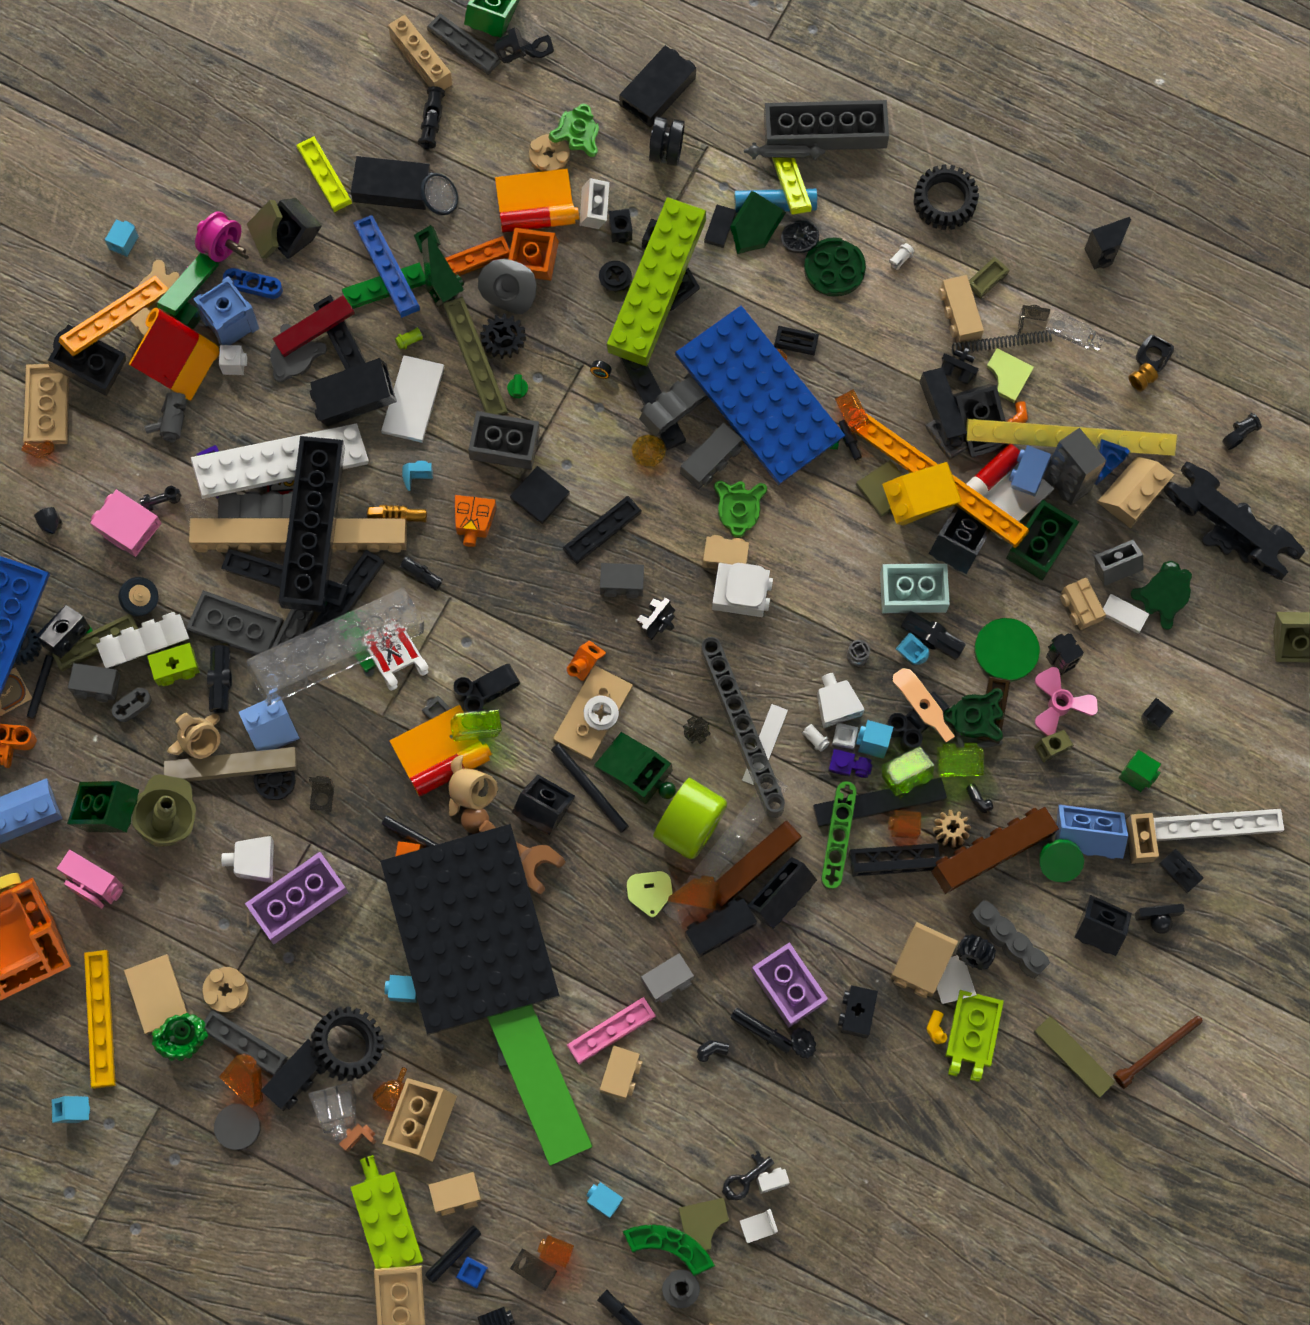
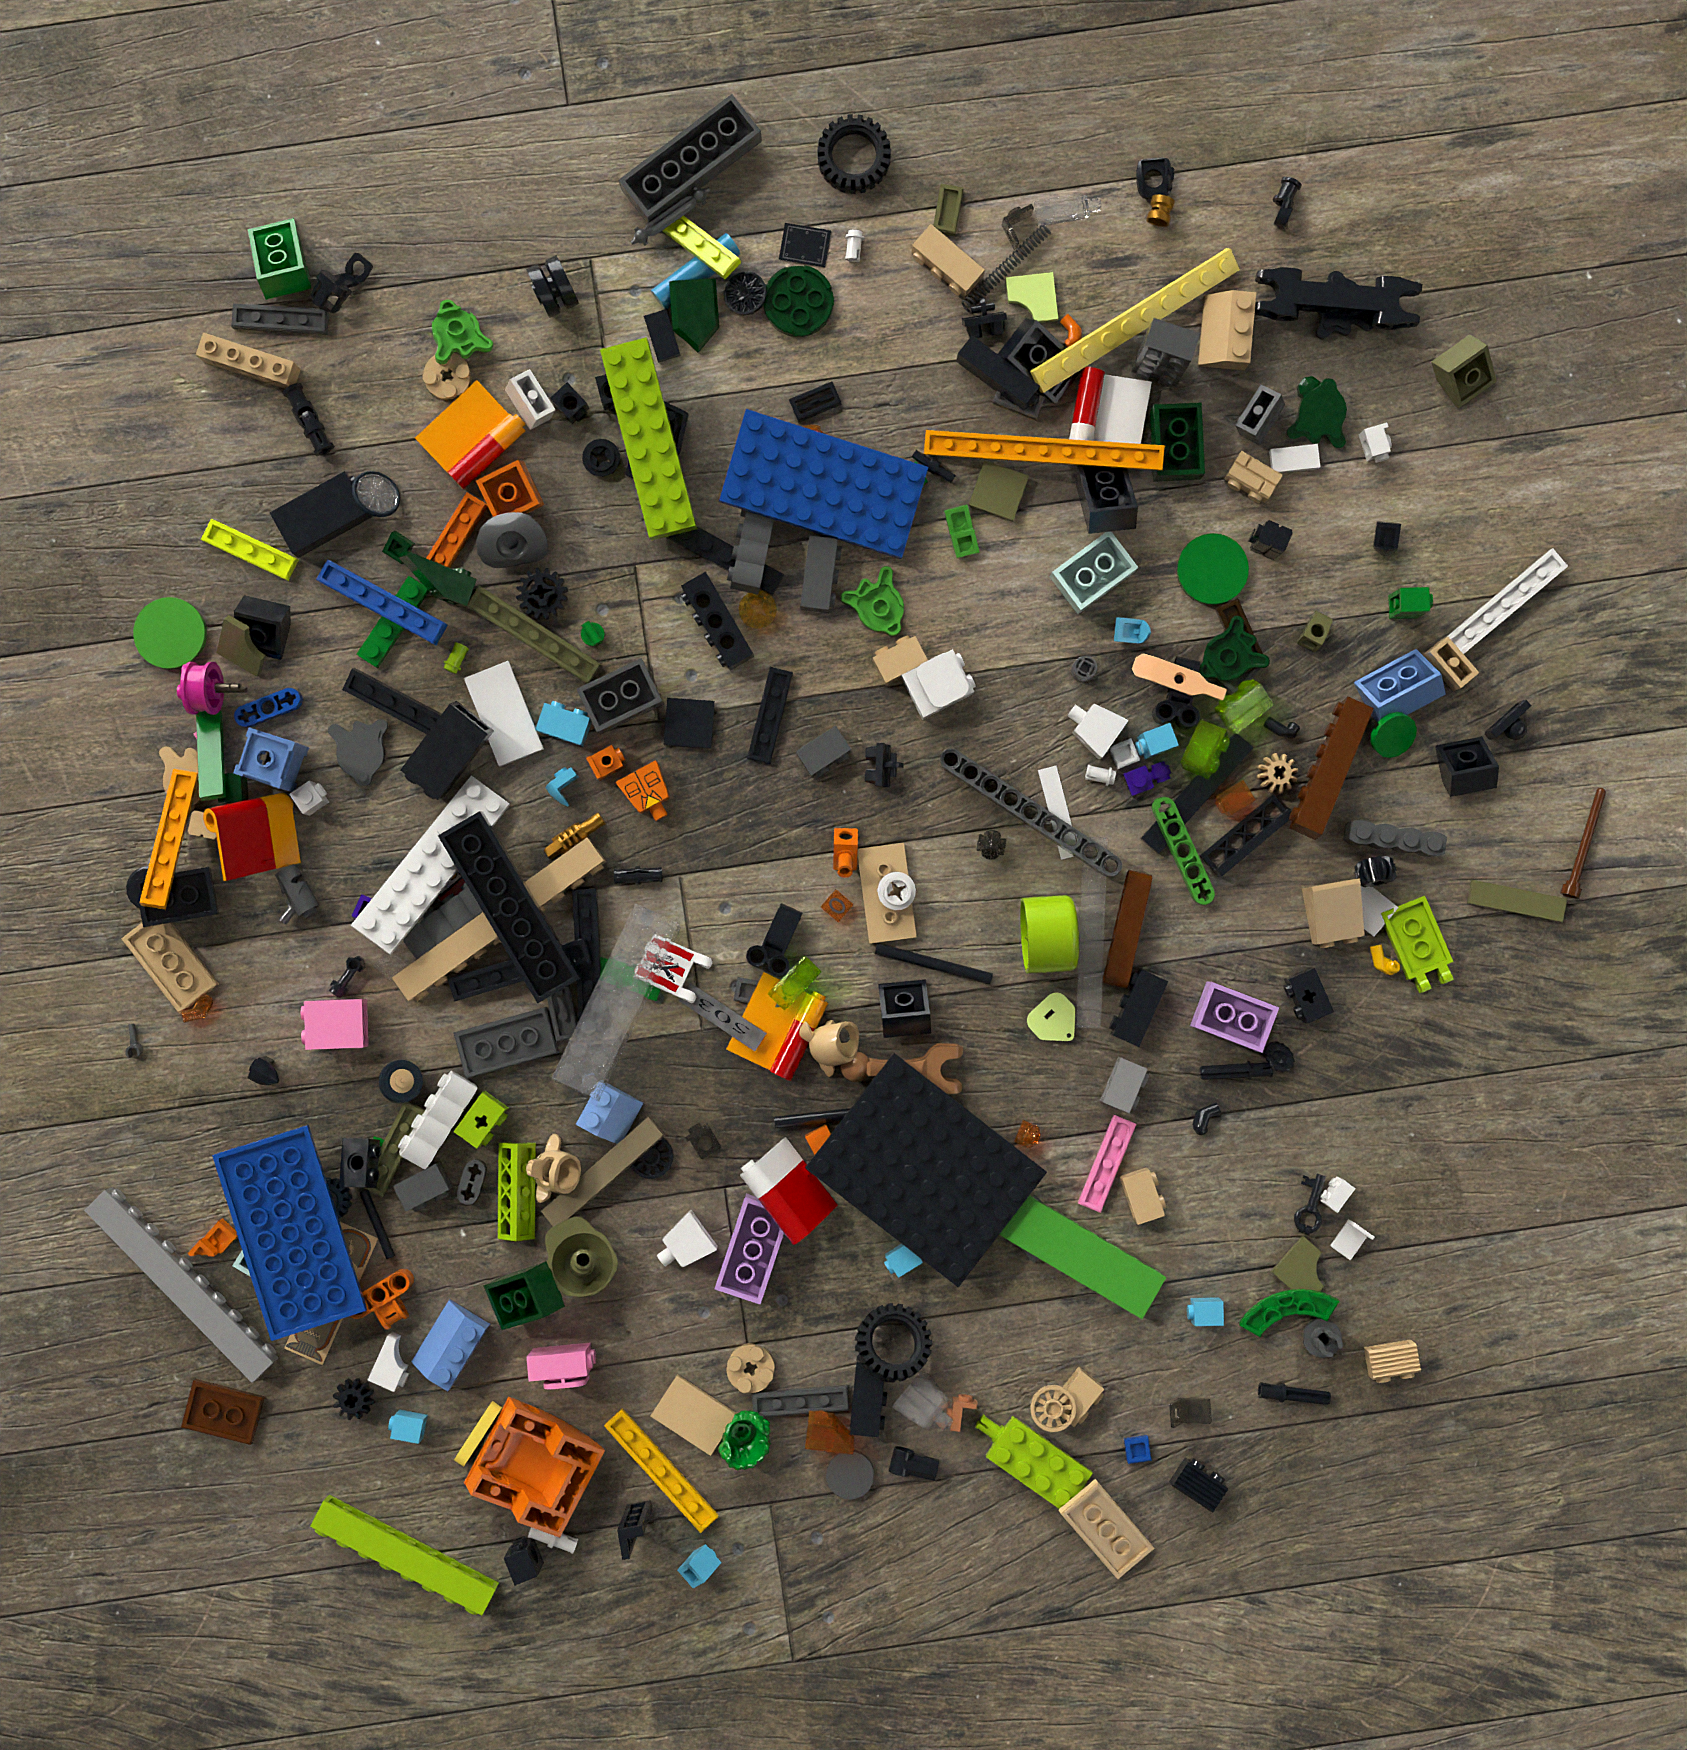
camera: 35 degrees left, 15 degrees up
(42, 1033) = (633, 1525): none -> black fence
(121, 237) = (110, 751): medium azure brick -> none
(159, 735) = (520, 1192): none -> lime fence
(219, 679) = (532, 1103): black piece -> none
(226, 189) = (169, 633): none -> bright green tile
(288, 1149) = (907, 1462): none -> black piece
(313, 326) = (360, 711): dark red tile -> none
(355, 871) = (788, 1191): none -> red door
(389, 1092) = (960, 1352): clear orange piece -> none
(405, 718) = (725, 1018): none -> flat silver sticker
(419, 1119) = (1002, 1359): tan slope -> none
(429, 1183) = (1053, 1408): none -> tan wheel
(449, 433) = (563, 723): none -> medium azure brick
(453, 1254) = (1111, 1446): black axle -> none
(455, 485) = (602, 771): none -> orange brick
(549, 696) = (837, 905): none -> clear orange tile
(555, 1251) = (1196, 1383): clear orange brick -> none
(566, 965) = (1028, 1134): none -> clear orange plate
(600, 369) = (656, 561): black tile -> none
(612, 470) = (703, 587): none -> black brick
(633, 767) = (958, 918): dark green slope -> none
(657, 85) = (499, 231): black brick -> none
(698, 893) = (1100, 995): clear orange slope -> none
(782, 892) = (1171, 938): black brick -> none
(838, 497) = (961, 531): none -> bright green slope
(852, 410) = (918, 437): clear orange plate -> none
(867, 234) = (804, 244): none -> black sticker
(921, 493) = (1040, 477): yellow slope -> none
(933, 635) = (1139, 603): black piece -> none
(1030, 470) = (1122, 382): medium blue brick -> none
(1050, 683) = (1274, 574): bright pink piece -> none
(1105, 243) = (1039, 98): black slope -> none
(1113, 454) = (1183, 313): blue slope -> none
(1181, 871) = (1503, 669): black hips -> none
(1194, 642) = (1376, 443): none -> white brick

